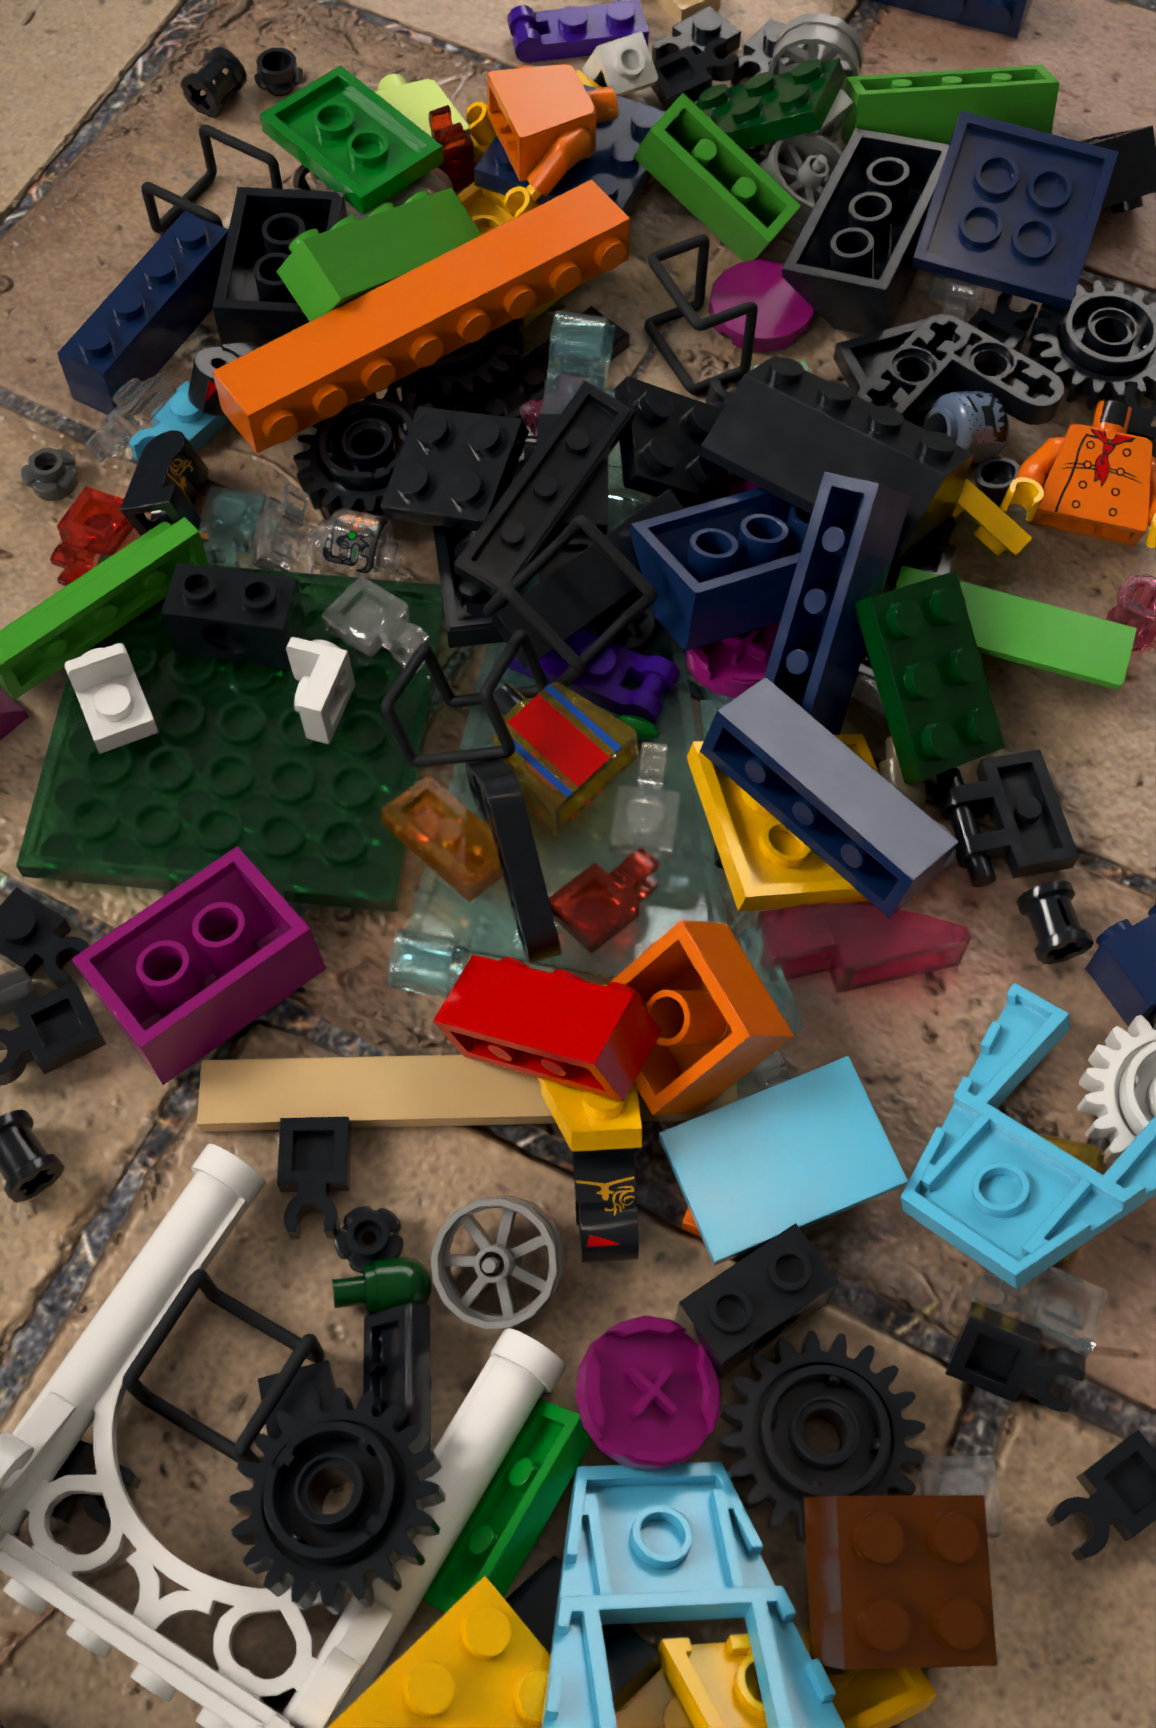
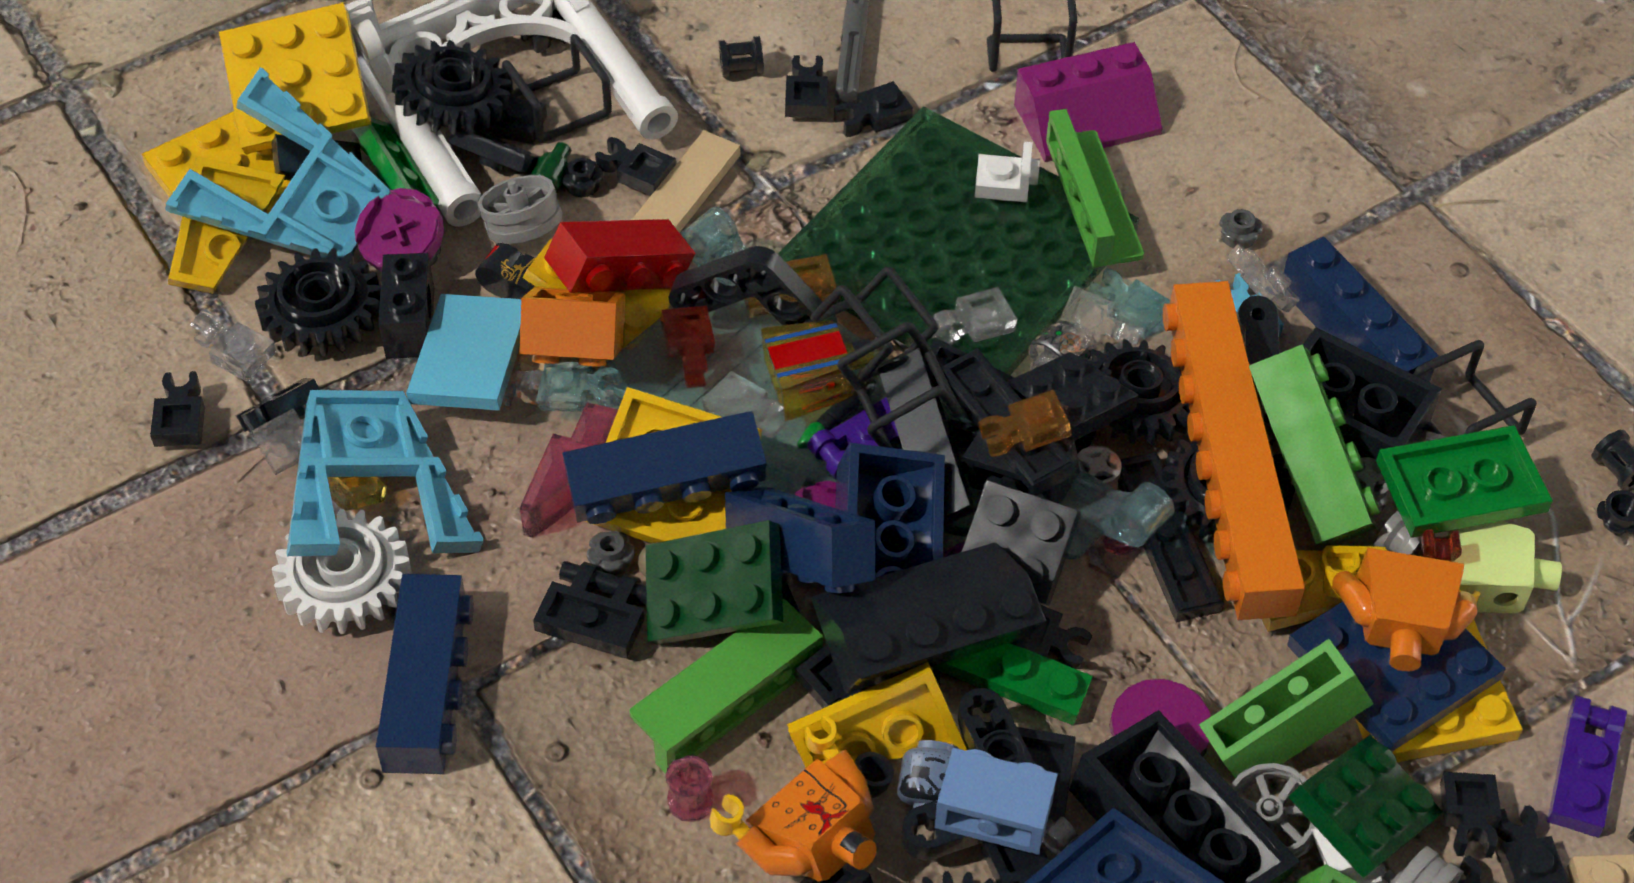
camera: 120 degrees right, 10 degrees down
(87, 529) = (1169, 230): clear red plate -> none
(165, 483) = (1170, 262): black leg -> none
(200, 964) = (792, 152): magenta slope -> none
(233, 615) = (1024, 244): black brick -> none
(323, 685) = (941, 272): white bracket -> none
(558, 434) = (1031, 421): none -> clear orange plate
(622, 64) = (1500, 747): white bracket -> none
(689, 309) = (1106, 641): black piece -> none
(899, 1581) = (223, 266): reddish brown brick -> none
(989, 324) = (995, 800): none -> medium blue brick
(1054, 922) = (502, 584): black bush -> none

